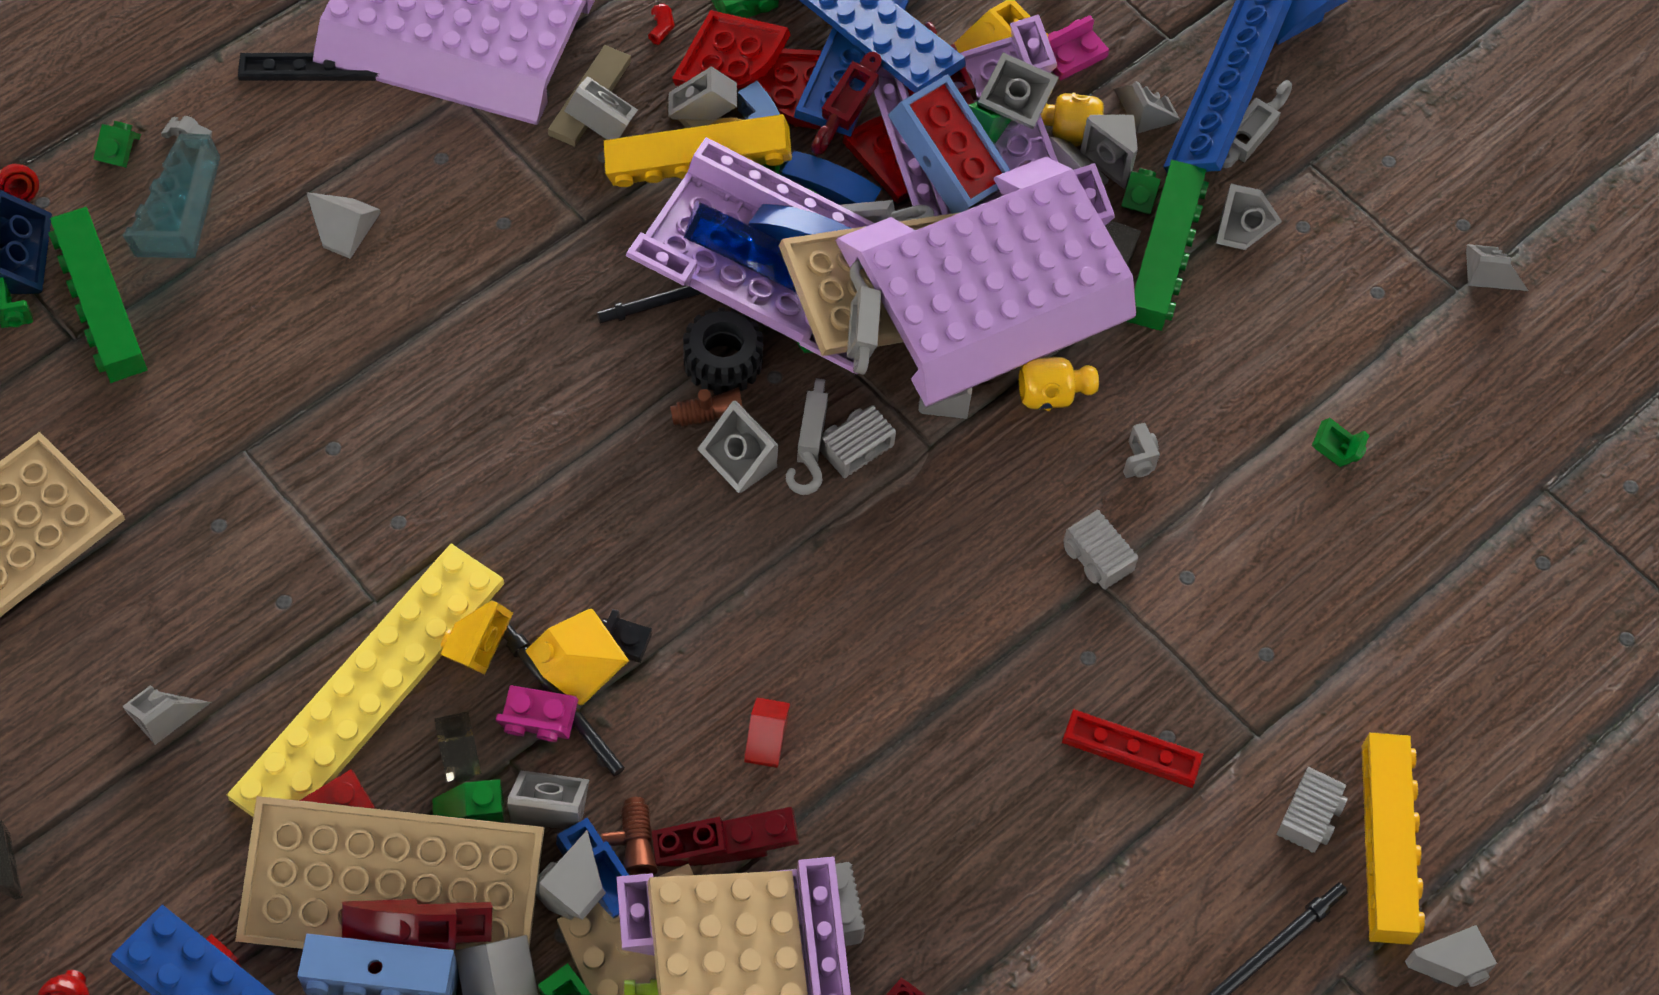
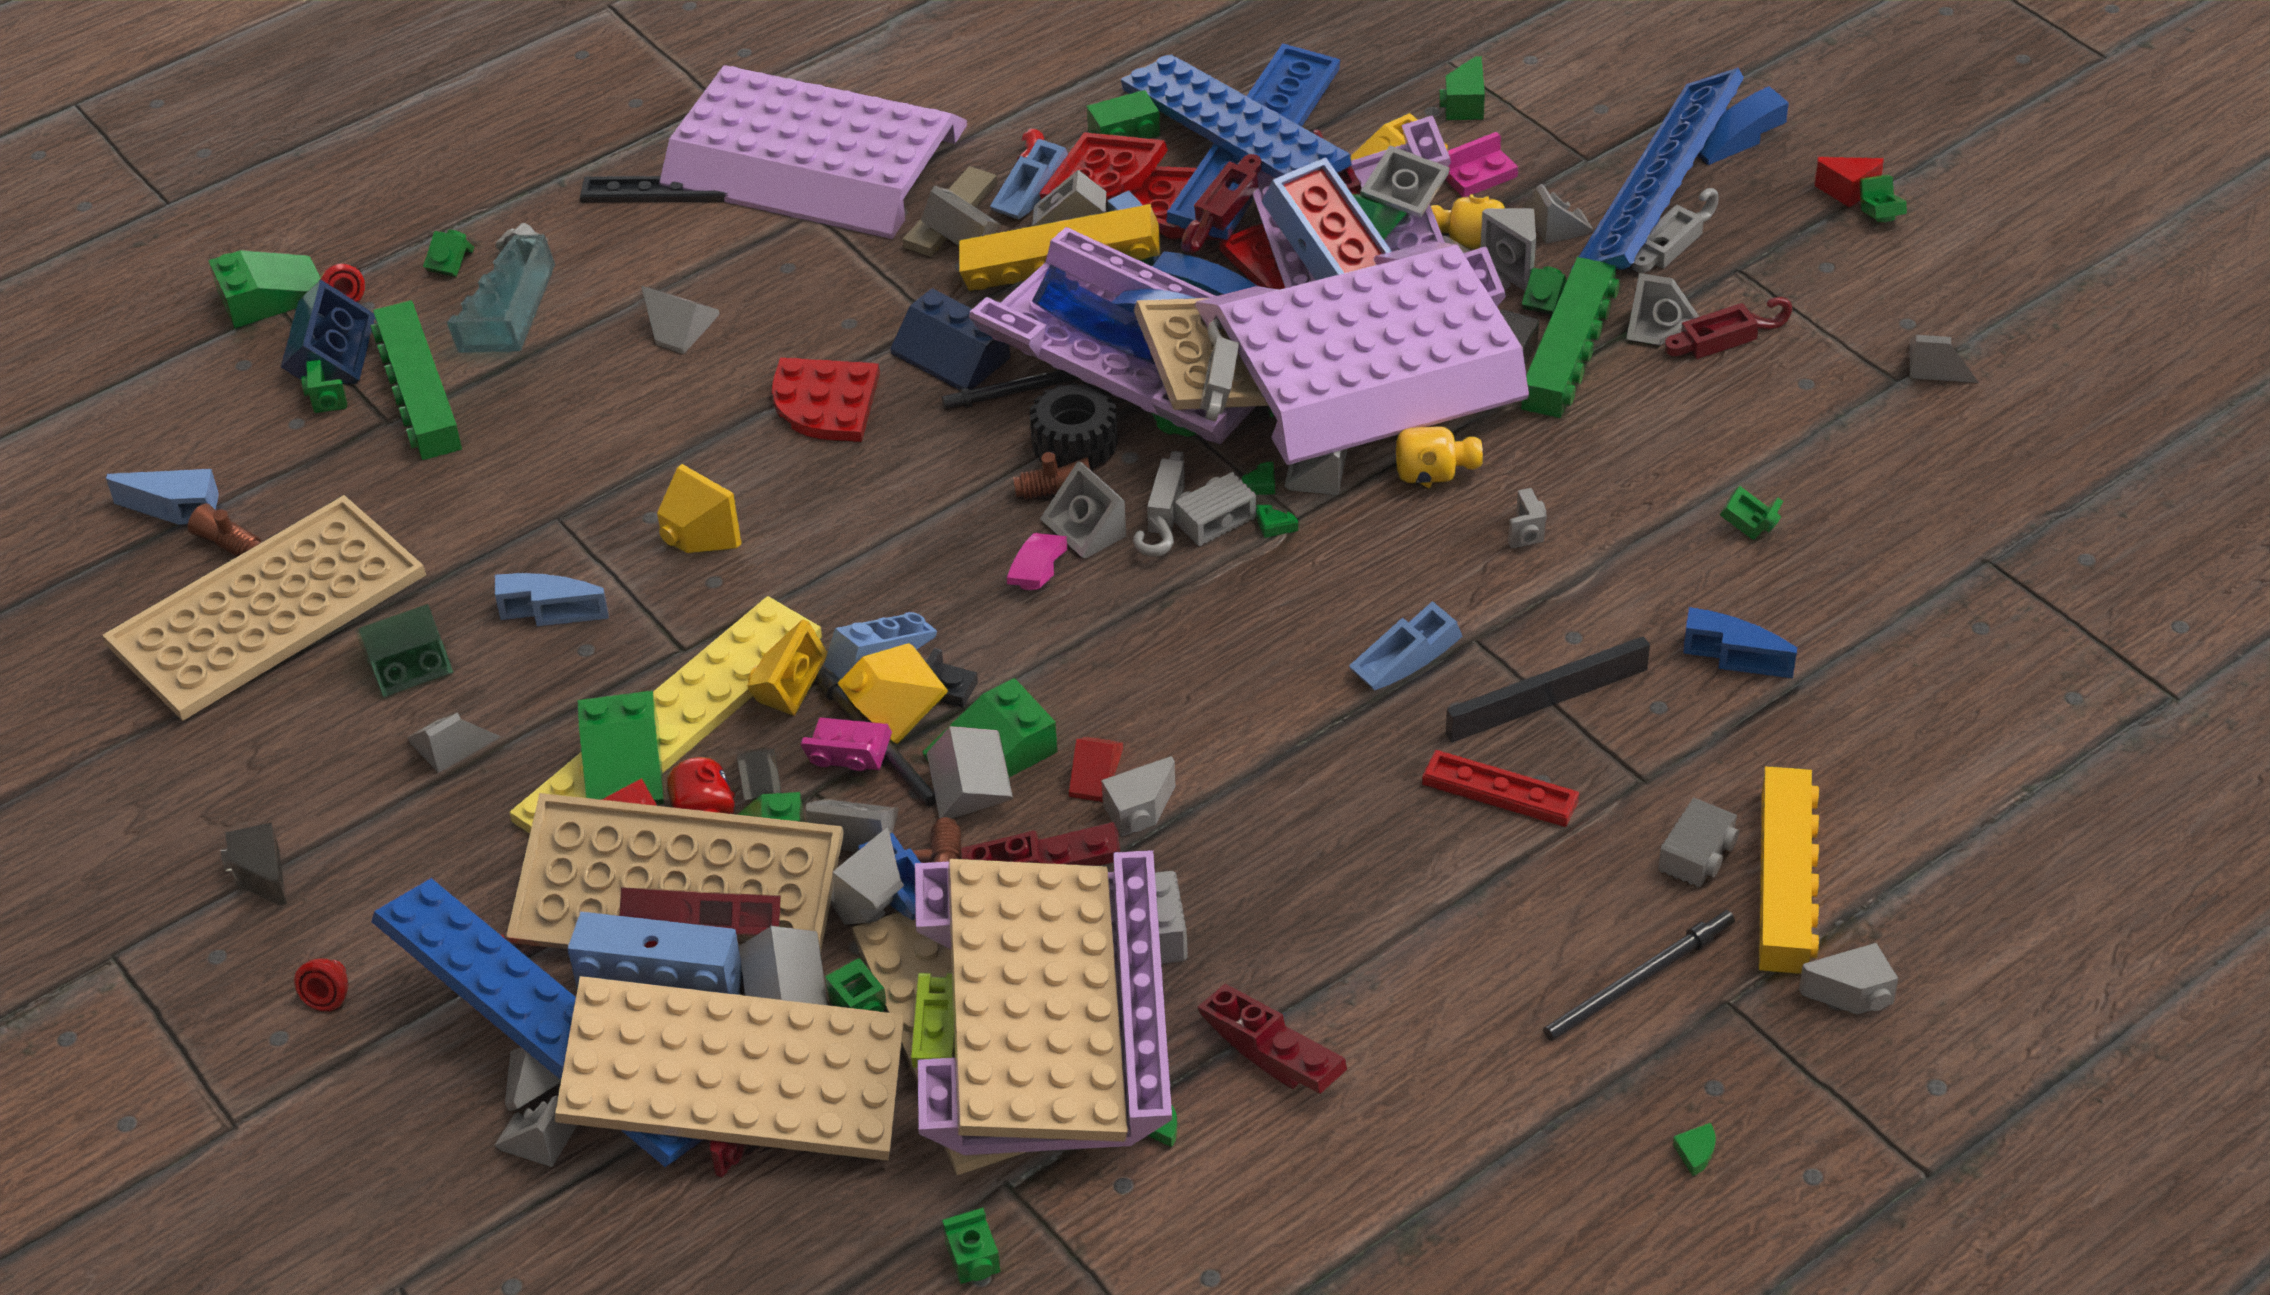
camera: 10 degrees right, 15 degrees down
(111, 611) = (404, 650): none -> clear green slope
(244, 549) = (549, 598): none -> medium blue slope
(327, 731) = (620, 744): none -> green slope
(379, 456) = (698, 514): none -> yellow slope
(406, 778) = (700, 786): none -> red piece
(487, 310) = (825, 396): none -> red plate
(557, 599) = (865, 638): none -> medium blue slope
(594, 250) = (947, 343): none -> dark blue slope
(653, 748) = (968, 771): none -> light grey slope
(661, 63) = (1027, 179): none -> medium blue slope
(670, 707) = (1023, 725): none -> green slope
(697, 501) = (1035, 560): none -> dark pink slope
(809, 768) = (1139, 795): none -> light grey slope
(896, 404) = (1261, 479): none -> green tile
(912, 451) = (1275, 522): none -> green tile
(1040, 597) = (1407, 647): none -> medium blue slope
(1100, 550) = (1476, 606): light grey brick -> none
(1169, 641) = (1547, 689): none -> black tile
(1308, 232) = (1724, 329): none -> dark red piece
(1334, 589) = (1738, 644): none -> blue slope
(1405, 65) = (1842, 176): none -> red slope
(1434, 91) = (1879, 198): none -> green bracket

